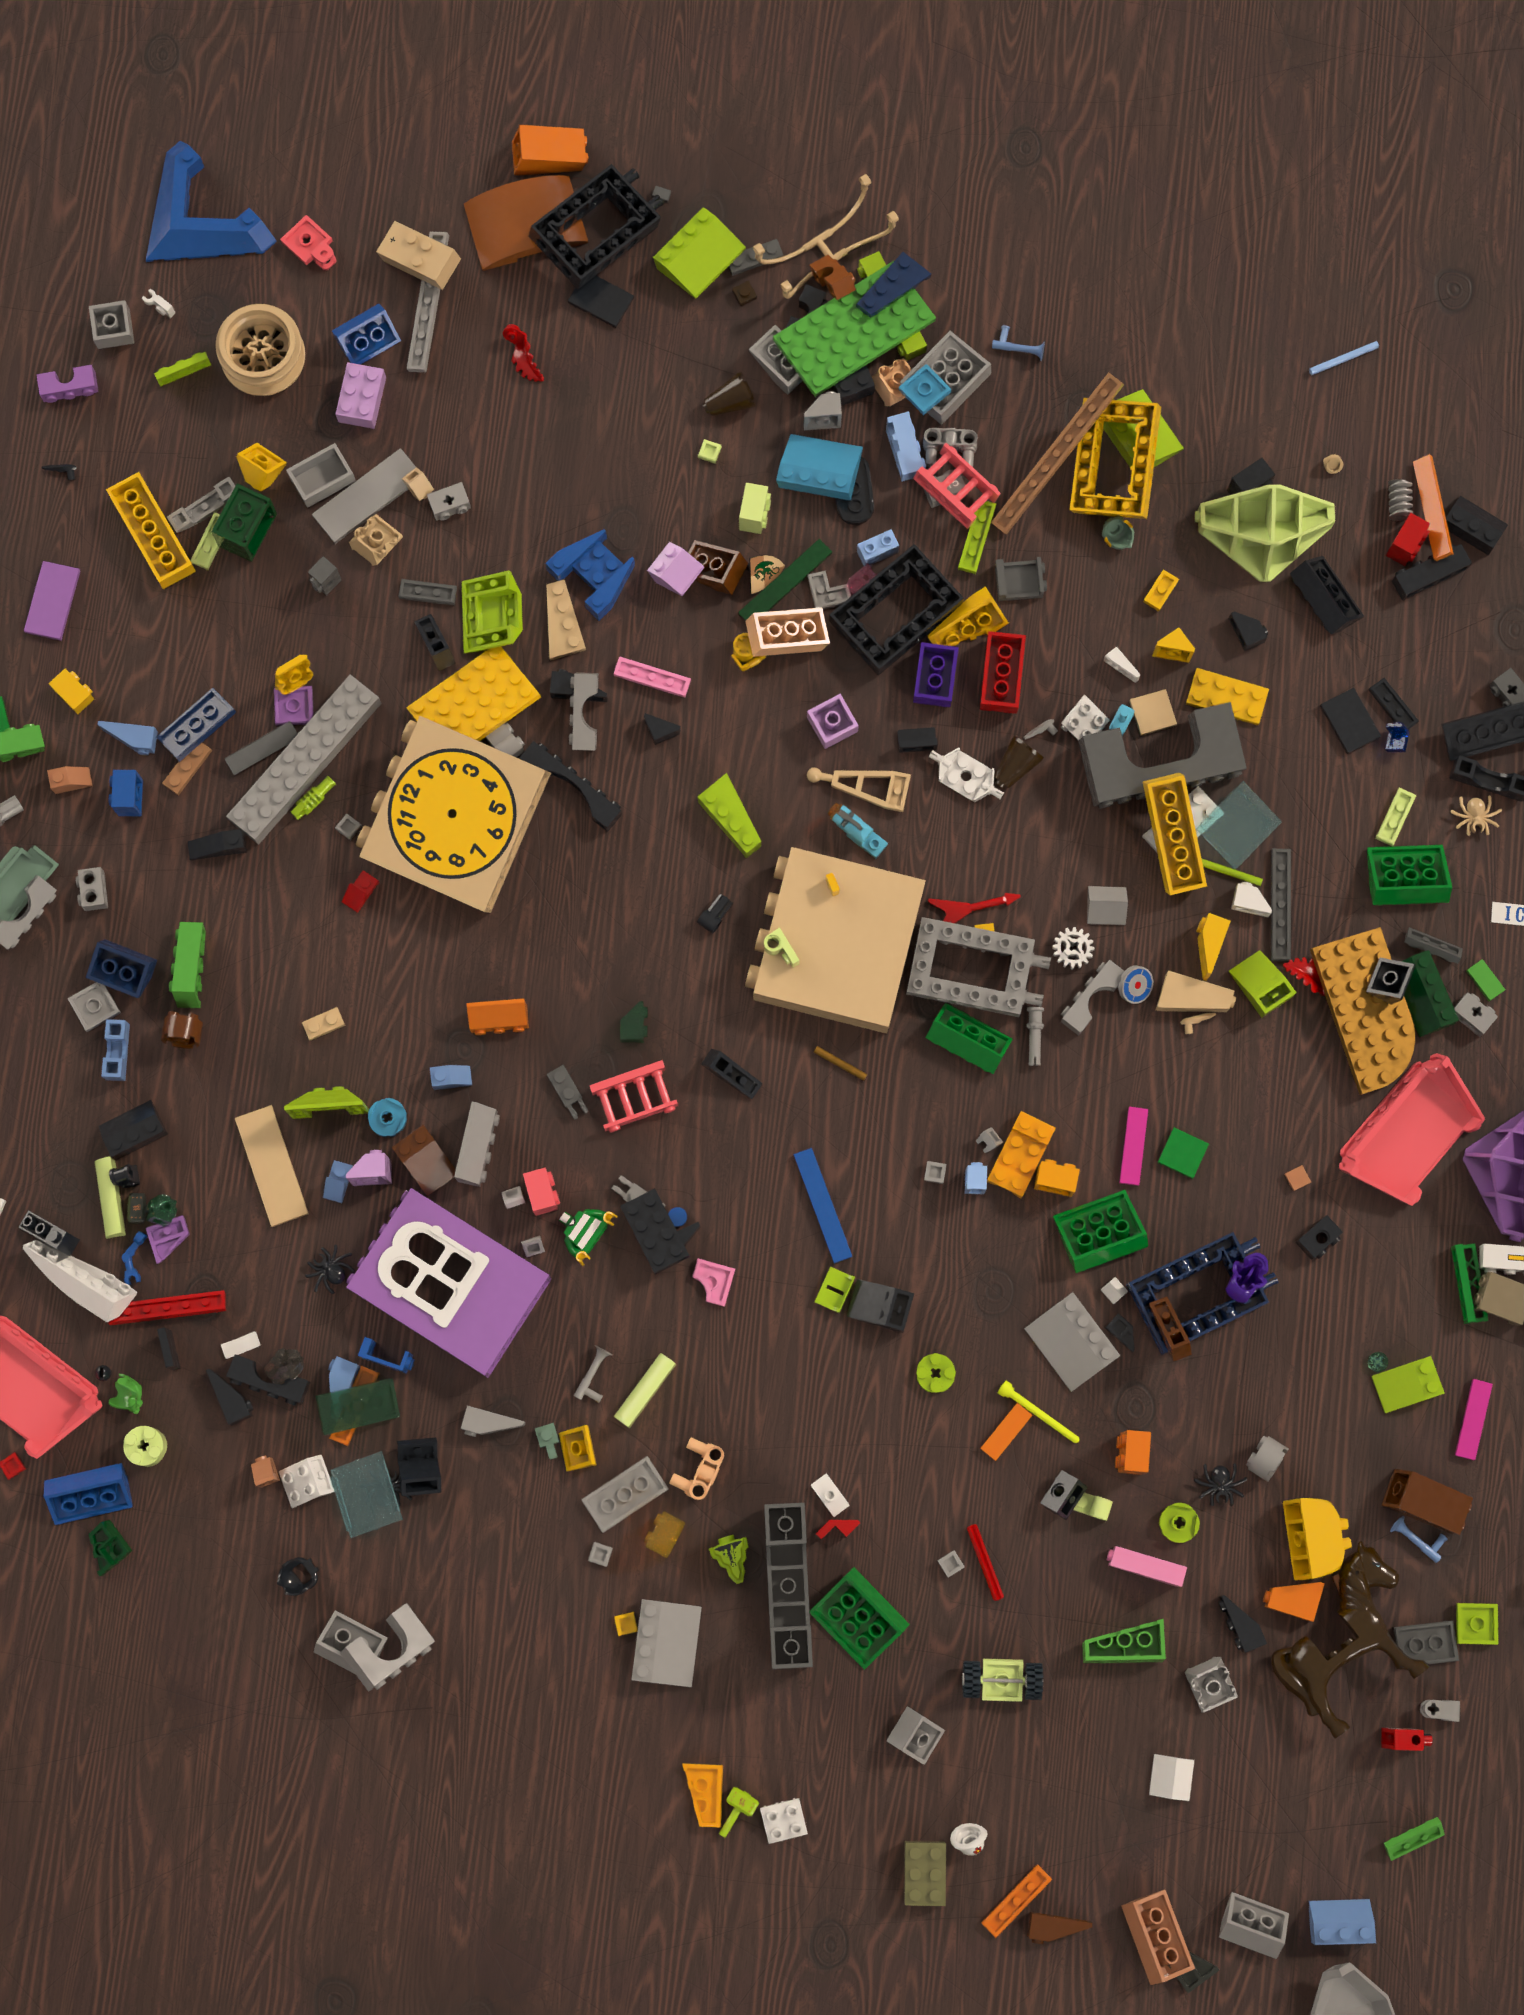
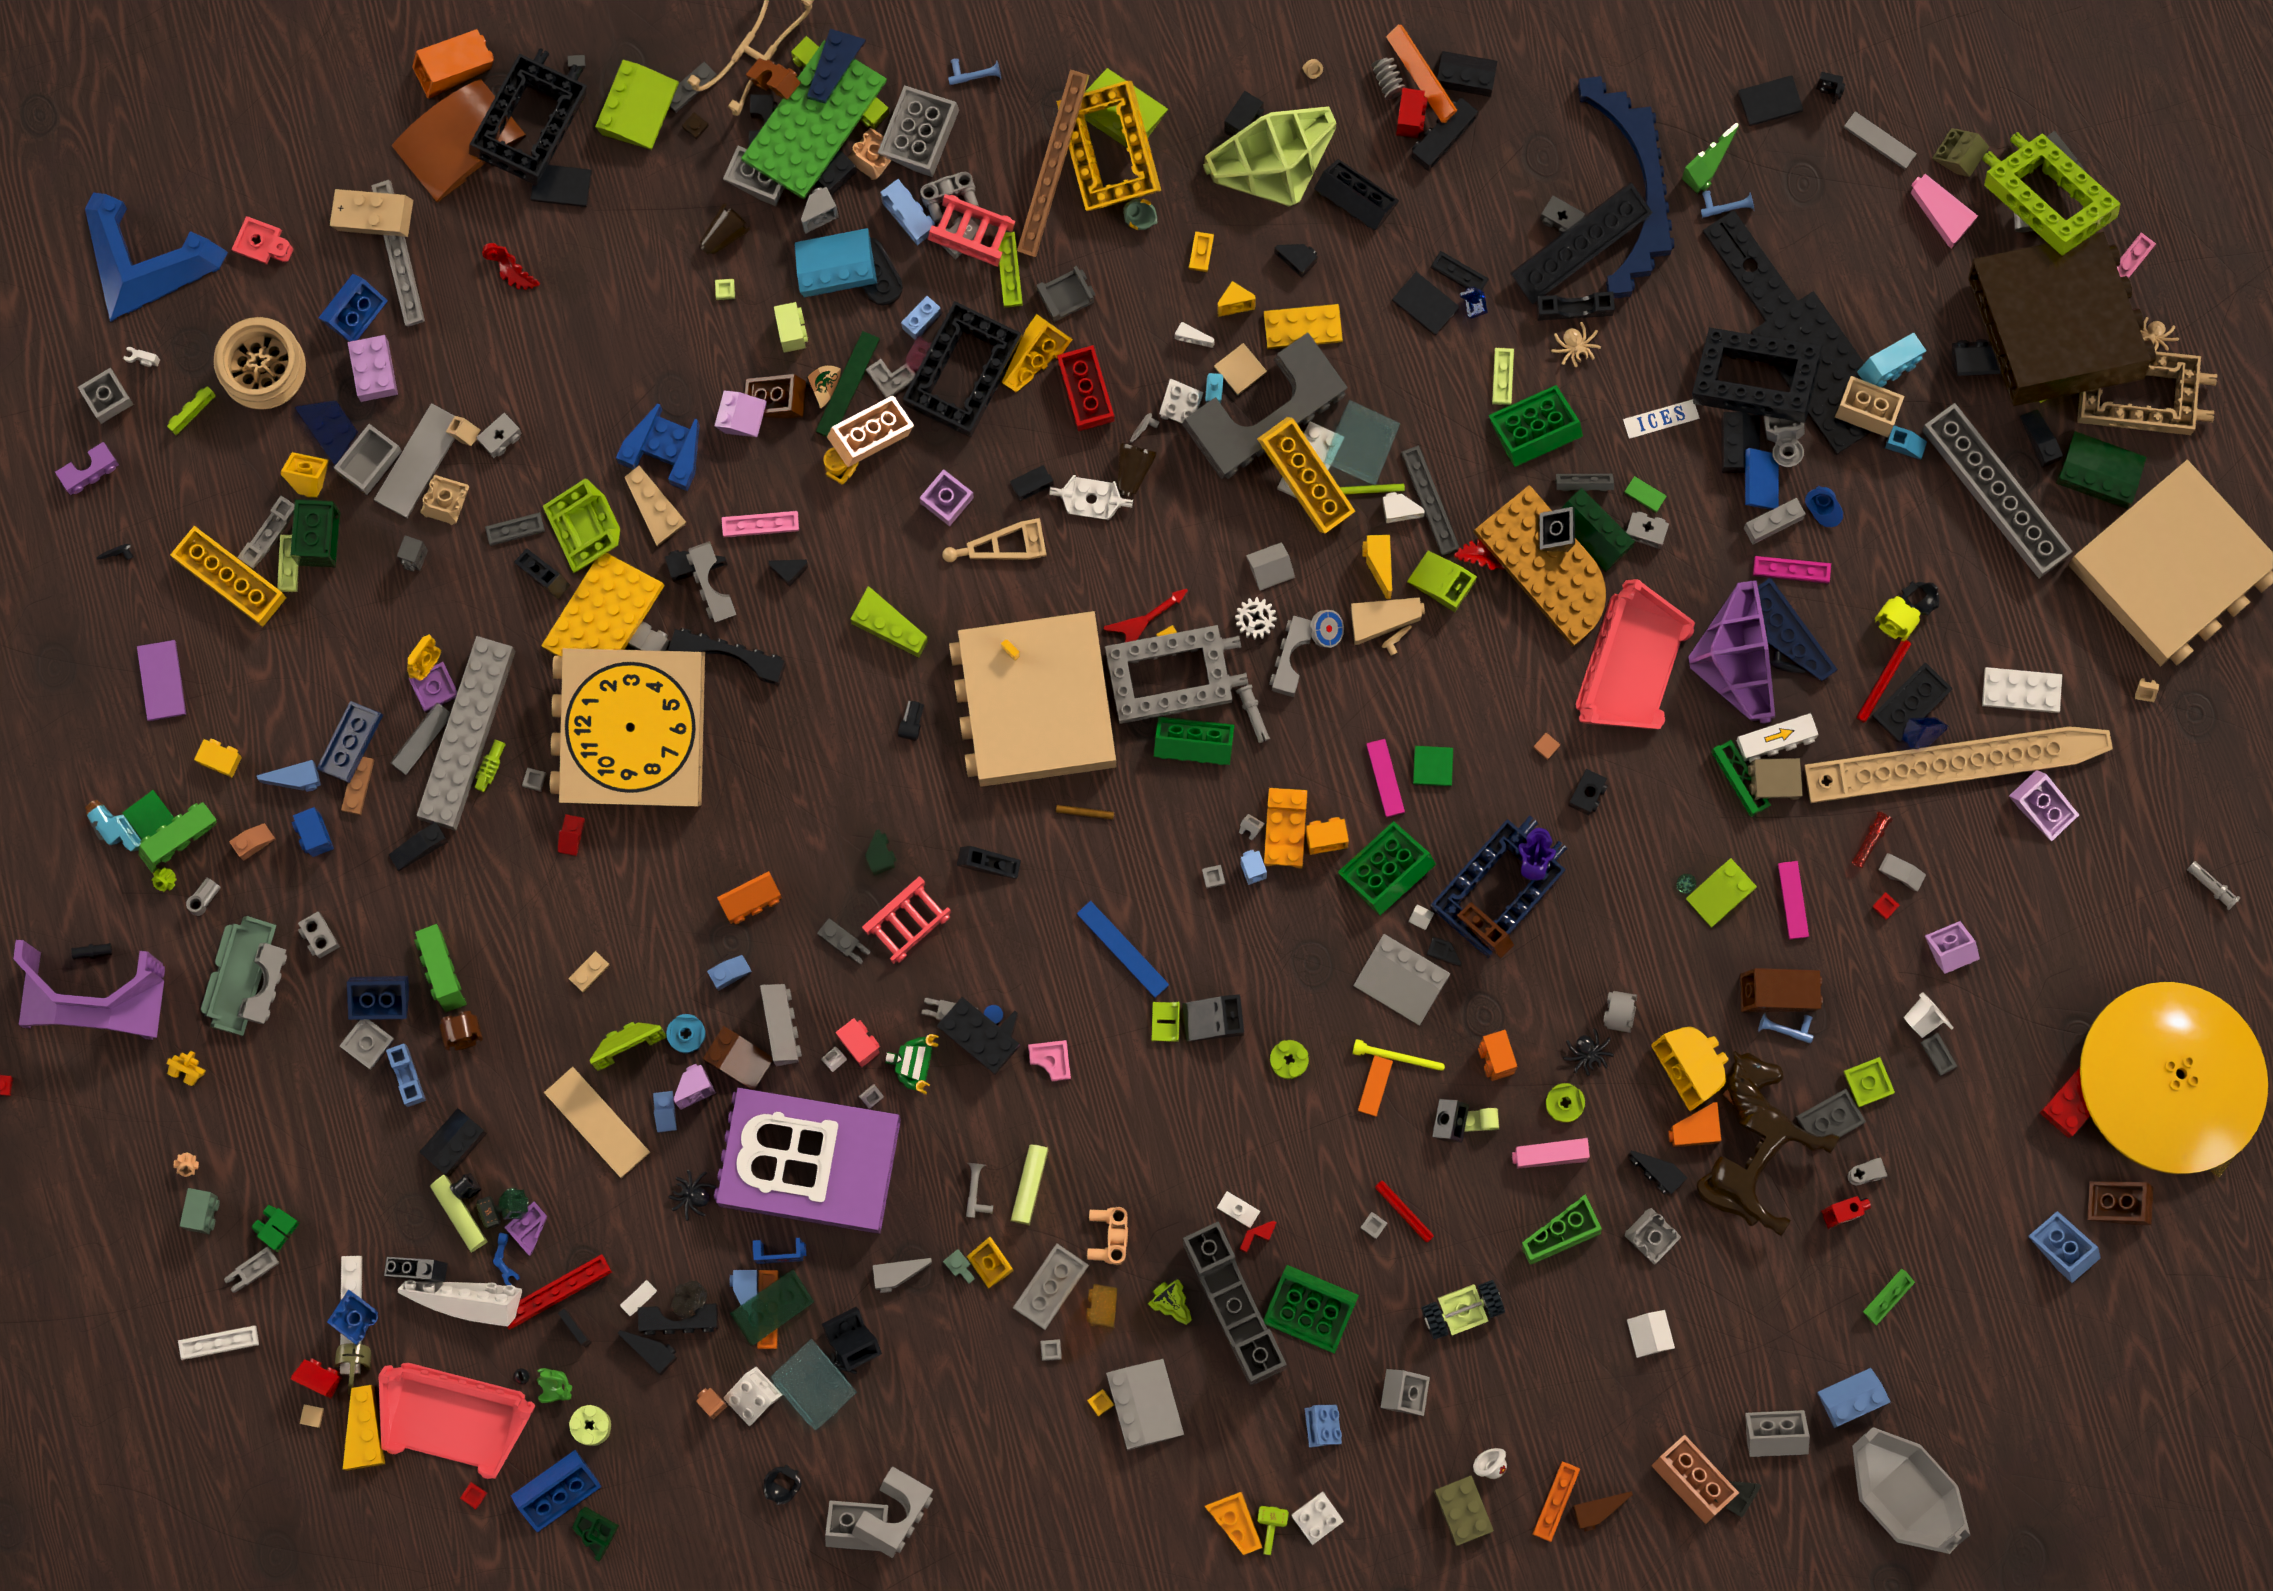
camera: 20 degrees left, 0 degrees up
(300, 432) = (329, 427): none -> clear blue wing
(783, 945) = (997, 730): yellowish green plate -> none
(825, 1734) = (1323, 1425): none -> medium blue bracket
(857, 830) = (1011, 589): medium azure plate -> none
(925, 389) = (904, 151): dark azure plate -> none
(935, 674) = (1024, 415): dark purple brick -> none

